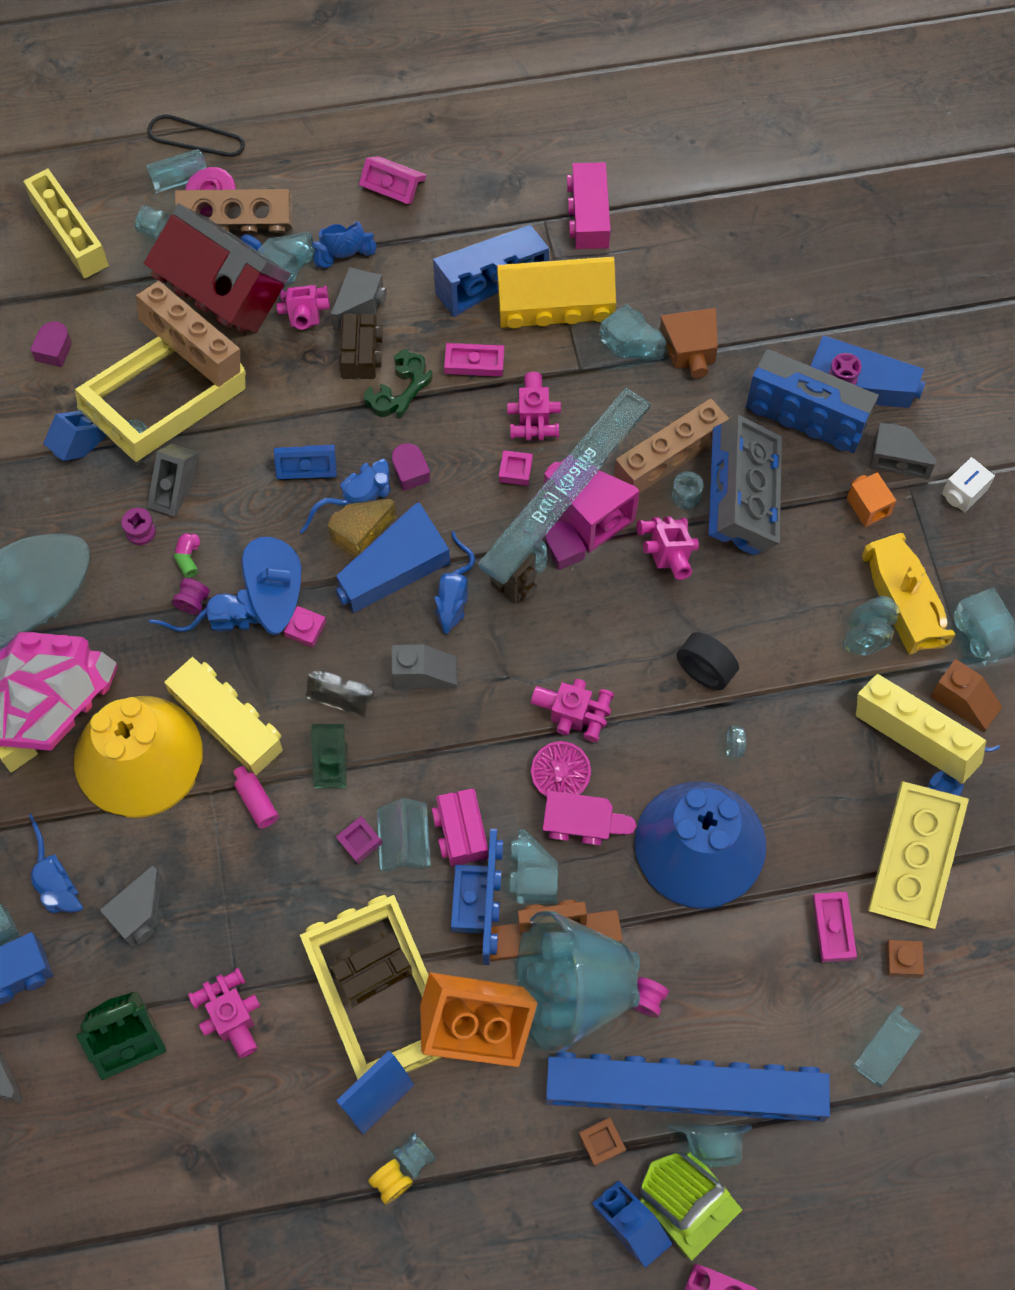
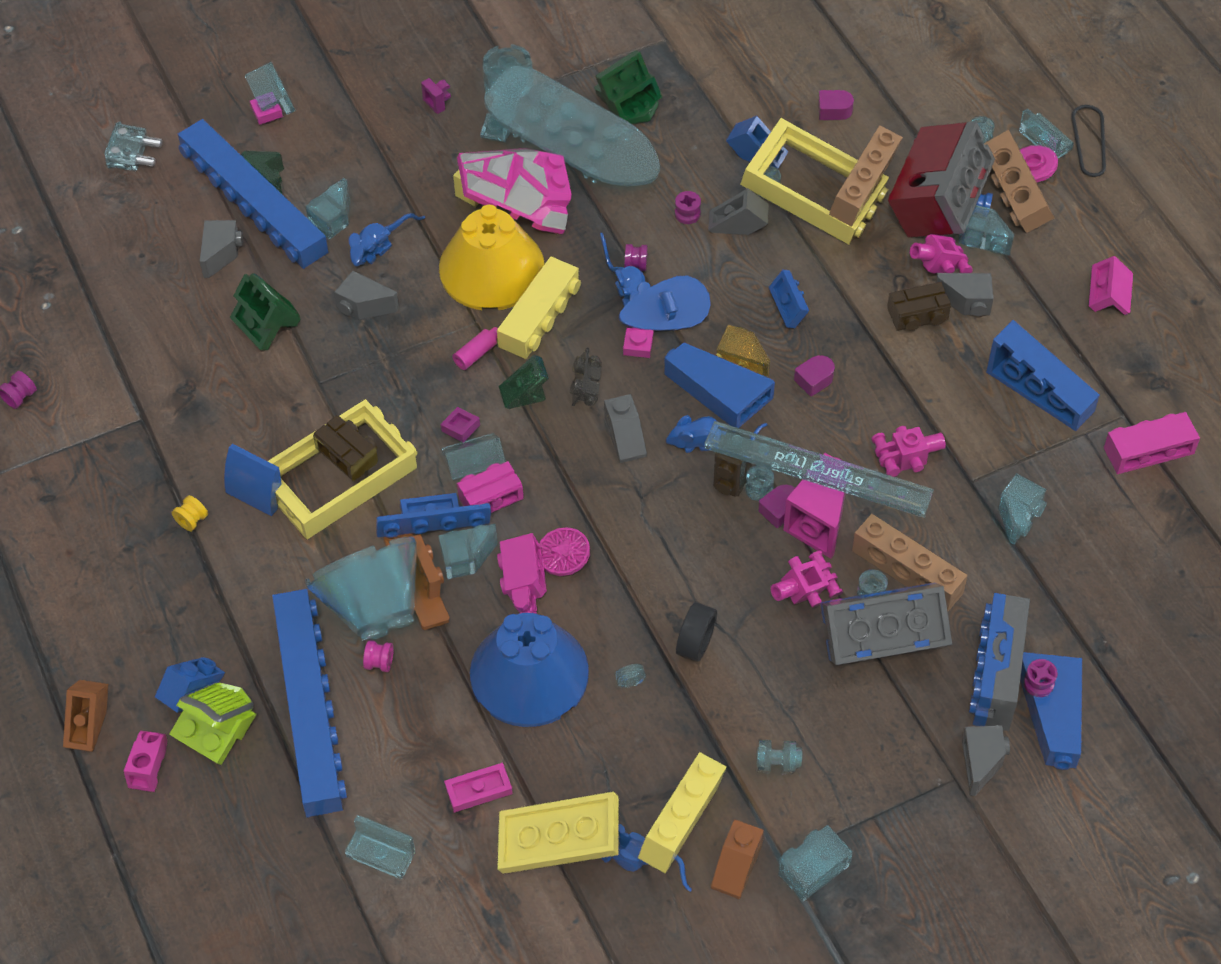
camera: 75 degrees right, 10 degrees down
(66, 223) = (949, 75): light yellow brick -> none
(182, 554) = (672, 244): arm -> none
(228, 1012) = (297, 376): dark pink piece -> none
(341, 243) = (1019, 264): blue hair -> none
(359, 488) = (779, 344): blue animal -> none
(413, 366) = (917, 353): dark green helmet -> none
(414, 1155) = (213, 524): clear light blue wheel -> none
(474, 359) = (942, 394): dark pink plate -> none
(475, 1019) = (322, 525): orange slope -> none
(515, 468) = (844, 448): dark pink plate -> none
(556, 292) = (1034, 433): yellow slope -> none
(574, 708) = (623, 545): dark pink piece -> none
(602, 1142) = (251, 650): dark orange plate -> none
(691, 339) = (1036, 557): dark orange torso -> none
(714, 1143) = (267, 724): clear light blue piece -> none
(871, 499) = (920, 740): orange brick -> none
(902, 577) = (828, 789): yellow piece -> none
(905, 958) = (465, 853): dark orange plate -> none
(967, 485) = (968, 822): white brick -> none

